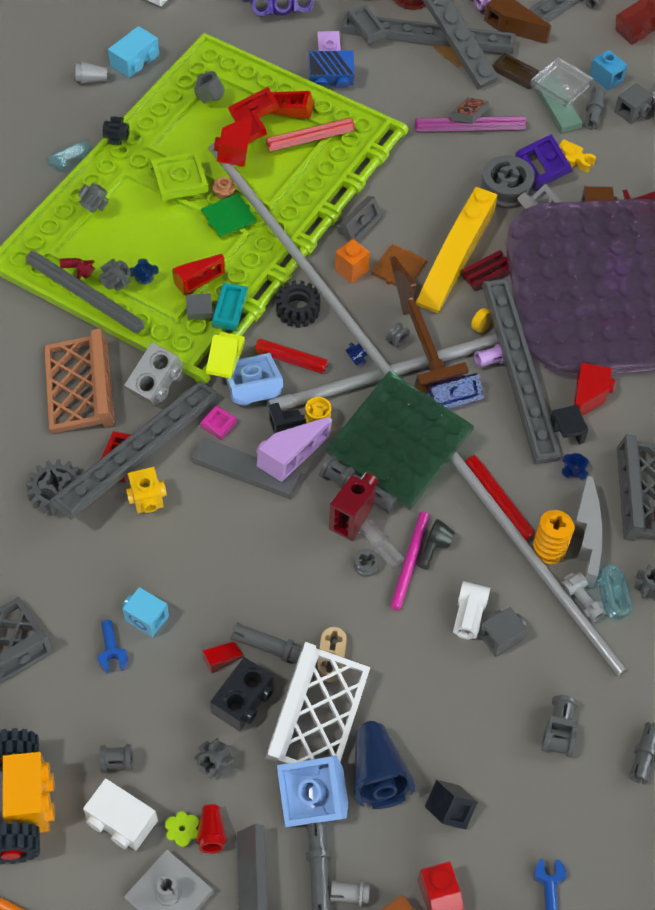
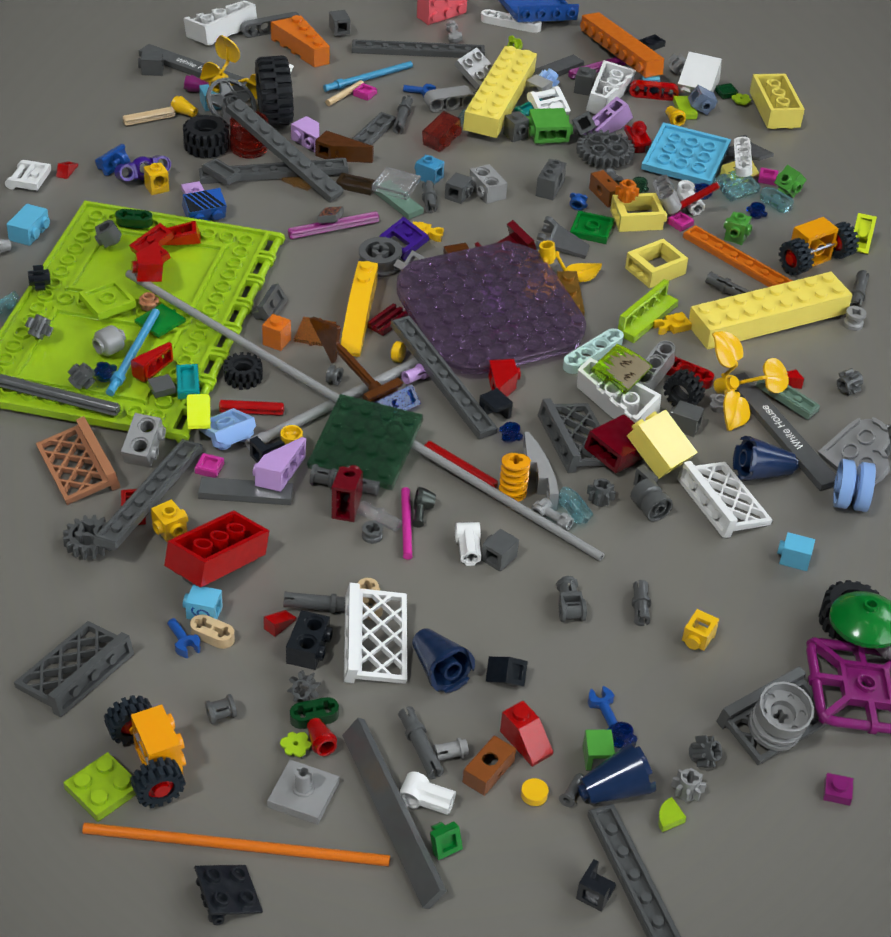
camera: 20 degrees left, 15 degrees down
(83, 267) = (51, 377): dark red plate -> none
(119, 815) = (242, 743): white brick -> none
(149, 644) = (212, 631): none -> tan beam
(155, 284) = (119, 376): none -> dark azure bar
(161, 233) = (109, 340): none -> light grey head
(179, 548) = (216, 548): none -> red brick
(216, 785) = (314, 709): none -> dark green beam
(247, 70) = (134, 218): none -> dark green beam
(291, 19) = (156, 178): none -> yellow brick
(310, 134) = (206, 252): axle -> none
(313, 791) = (393, 686): light blue slope -> none
(356, 353) = (306, 394): clear blue plate -> none

